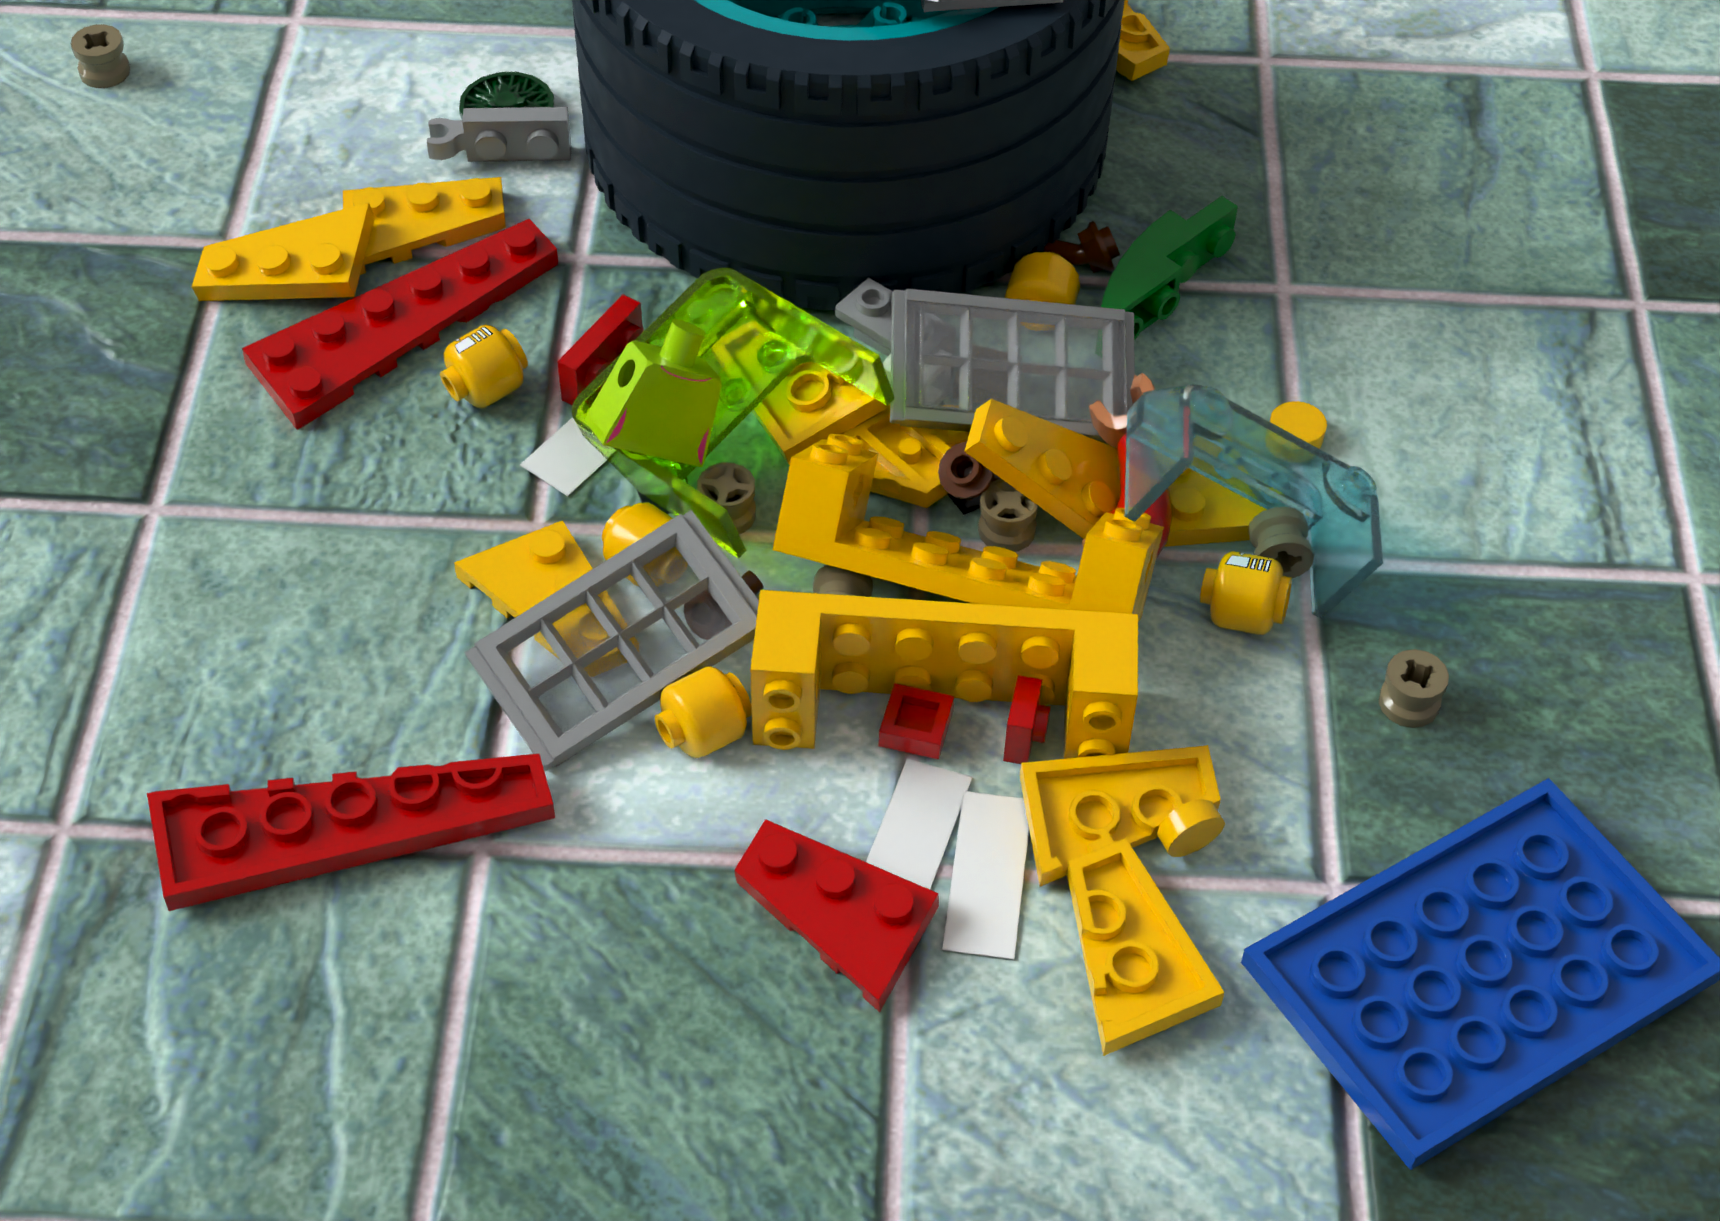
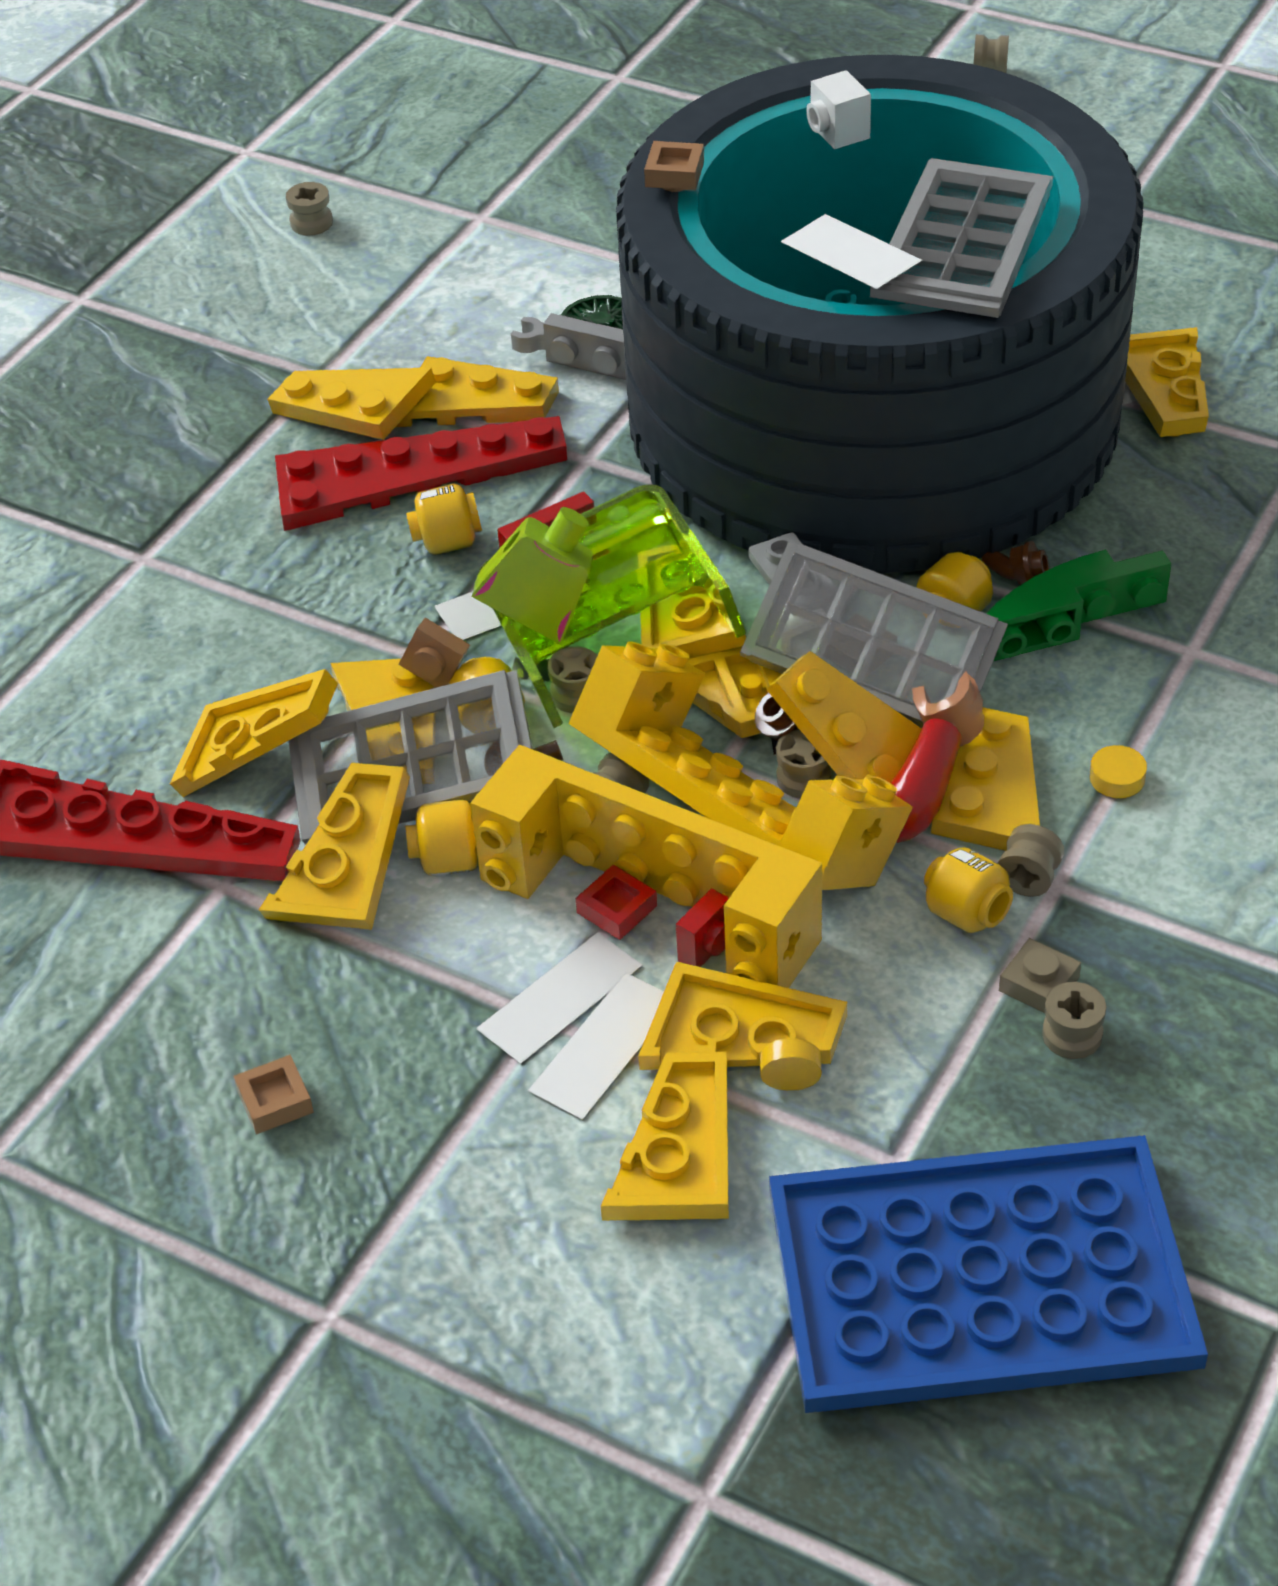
camera: 30 degrees right, 5 degrees down
(425, 660) = (250, 726): none -> yellow wing
(579, 519) = (434, 653): none -> medium nougat plate
(613, 769) = (347, 857): none -> yellow wing
(695, 1054) = (273, 1094): none -> medium nougat plate
(844, 907) = (463, 1026): red wing -> none
(1263, 463) = (1024, 776): clear light blue windscreen -> none
(1351, 656) = (1036, 972): none -> dark tan plate

